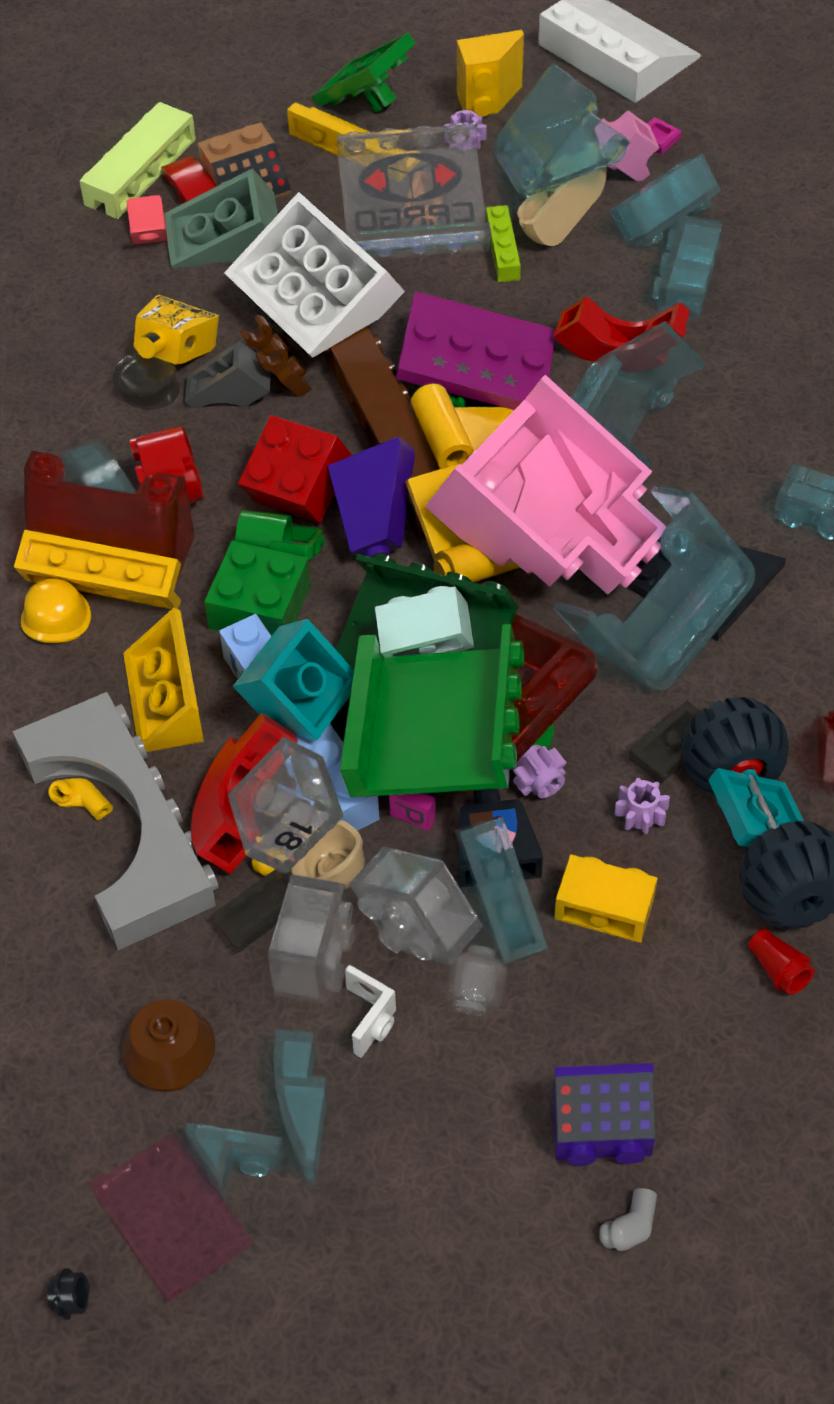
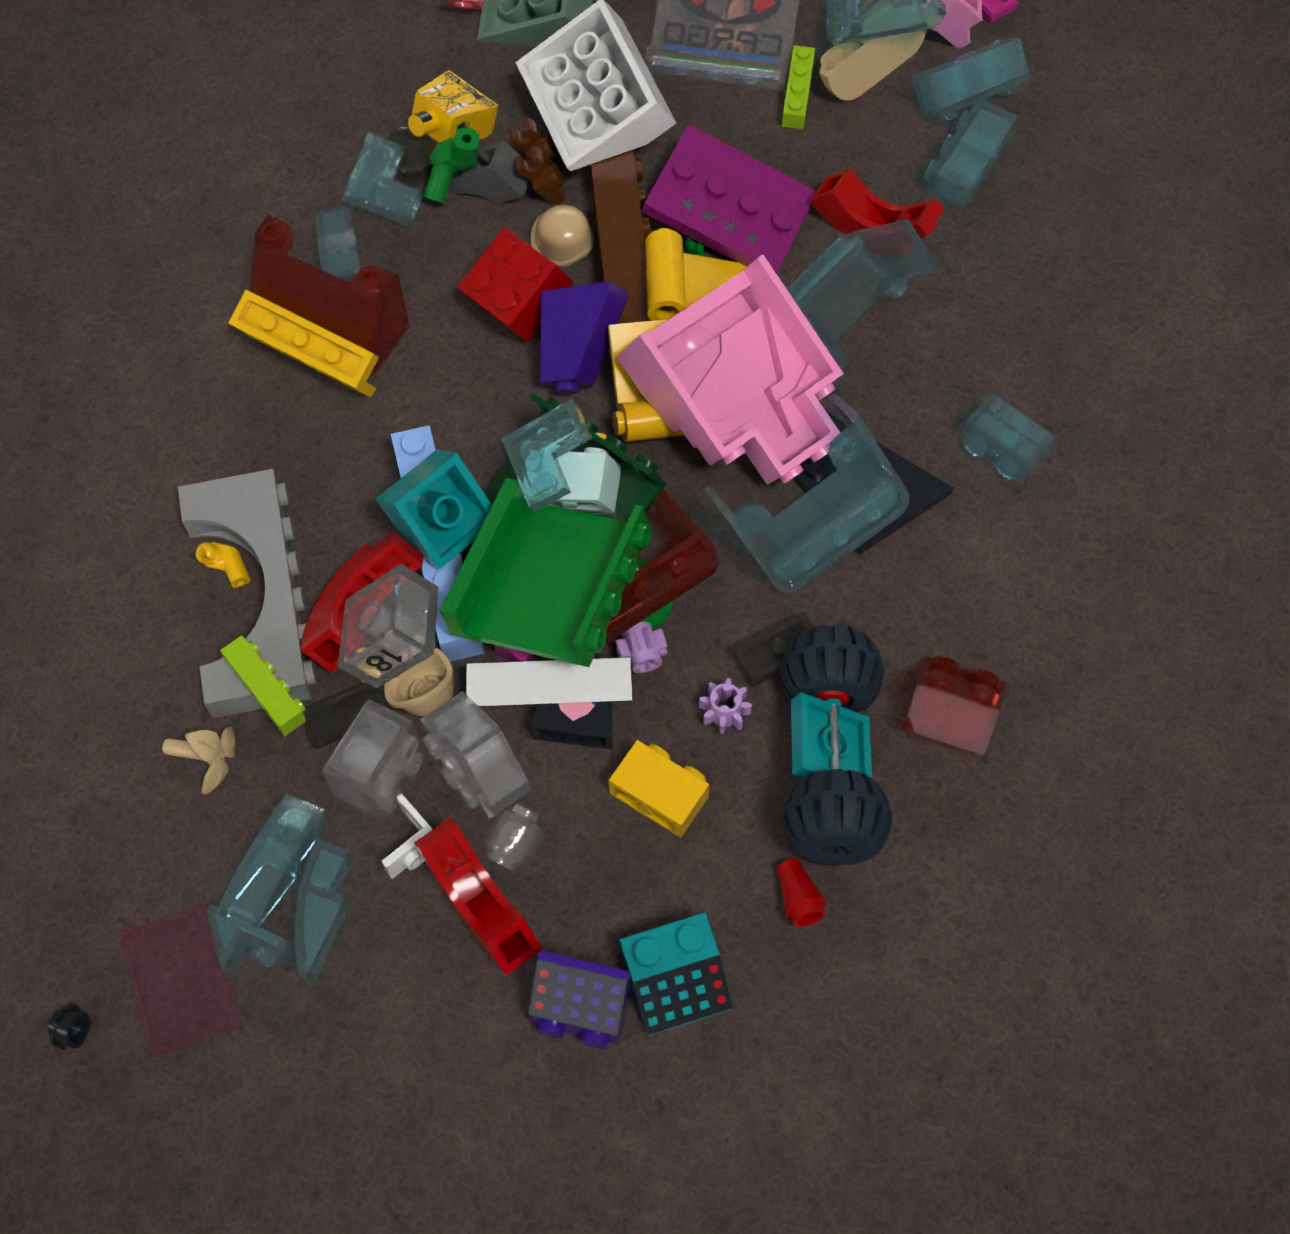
camera: 15 degrees right, 10 degrees up
(55, 612) = (258, 374): yellow helmet -> none
(112, 408) = (372, 183): none -> clear light blue plate
(130, 975) = (207, 747): none -> tan plant
(163, 686) = (331, 474): yellow slope -> none
(167, 453) = (402, 249): red brick -> none
(168, 1045) = (222, 822): reddish brown cone -> none
(171, 894) = (263, 685): none -> lime piece
(189, 369) = (449, 157): none -> green arm
(236, 1066) = (272, 861): none -> clear light blue slope
(260, 584) = (446, 397): green brick -> none
(277, 533) = (474, 347): green piece -> none
(323, 411) = (562, 235): none -> tan helmet
(383, 600) = (536, 448): none -> clear light blue plate
(436, 827) = (549, 682): none -> white sticker
(485, 1067) = (477, 898): none -> red arch
(501, 889) = (557, 759): clear light blue brick -> none
(633, 1227) = (577, 1108): light grey arm -> none
(693, 1066) = (676, 974): none -> slope

